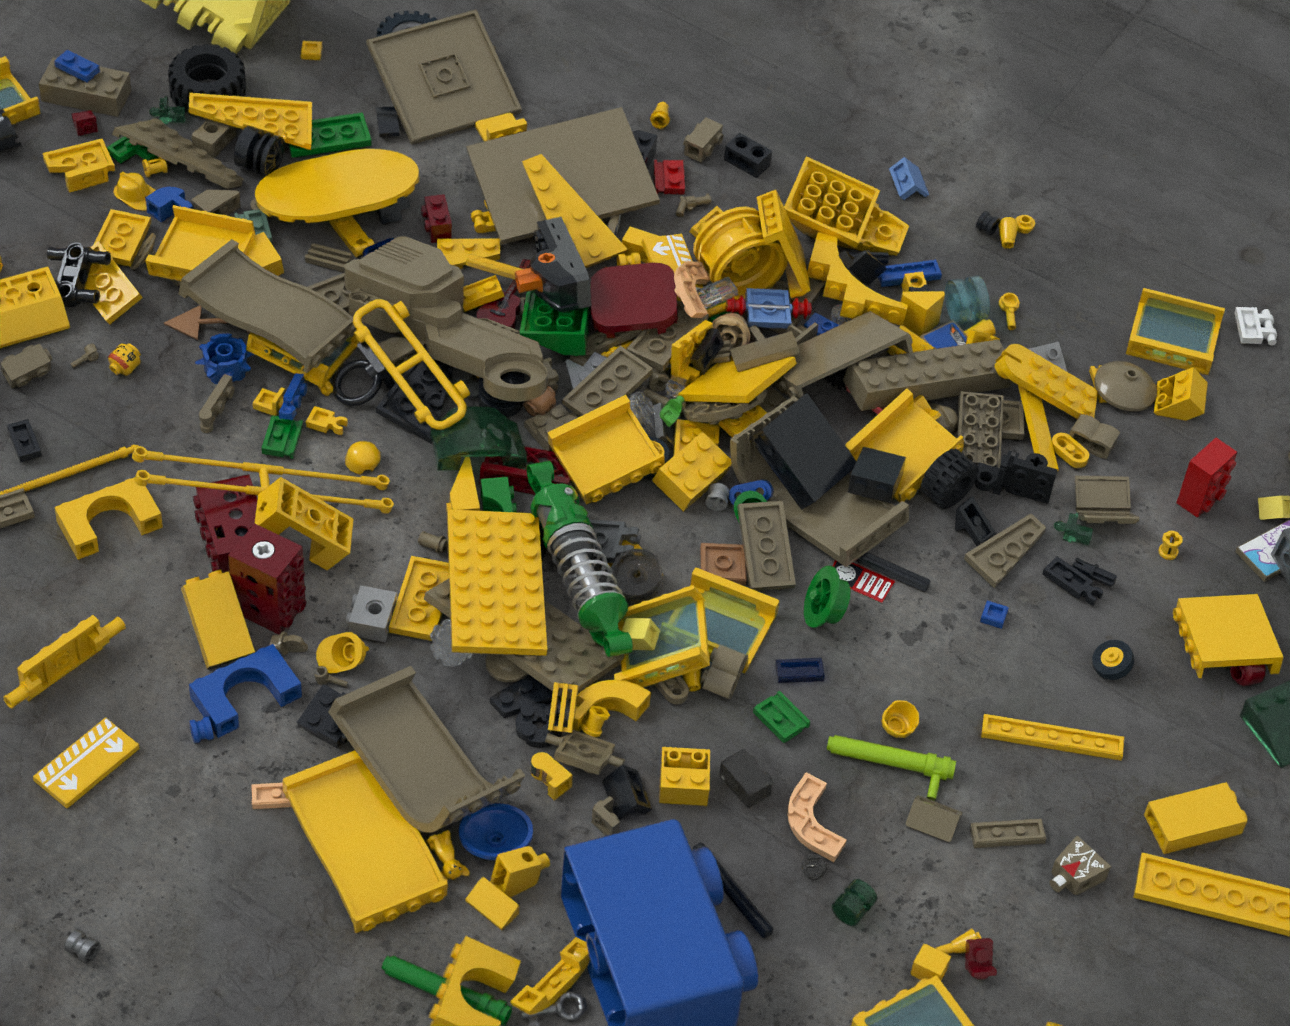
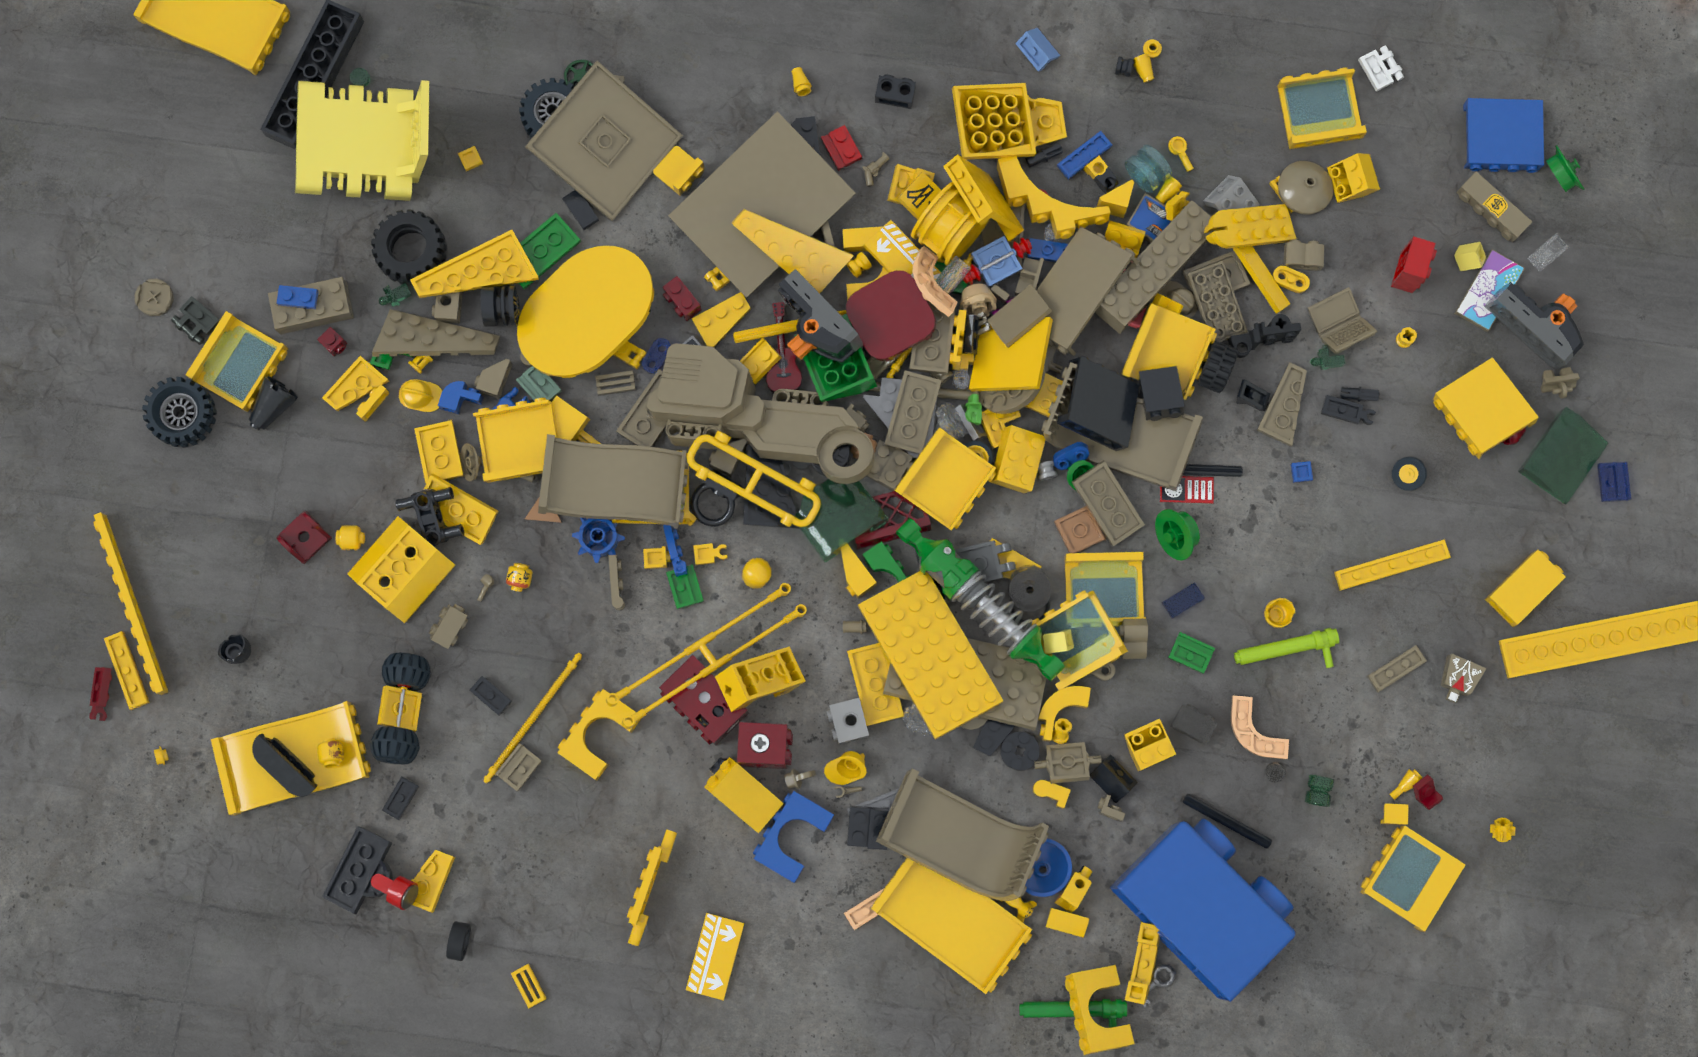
camera: 20 degrees left, 30 degrees up
(201, 729) = (782, 888): blue wheel -> none
(574, 688) = (1040, 752): yellow tile -> none
(703, 139) = (851, 89): dark tan brick -> none
(863, 266) = (1046, 176): black panel -> none
(933, 818) = (1340, 683): dark tan panel -> none

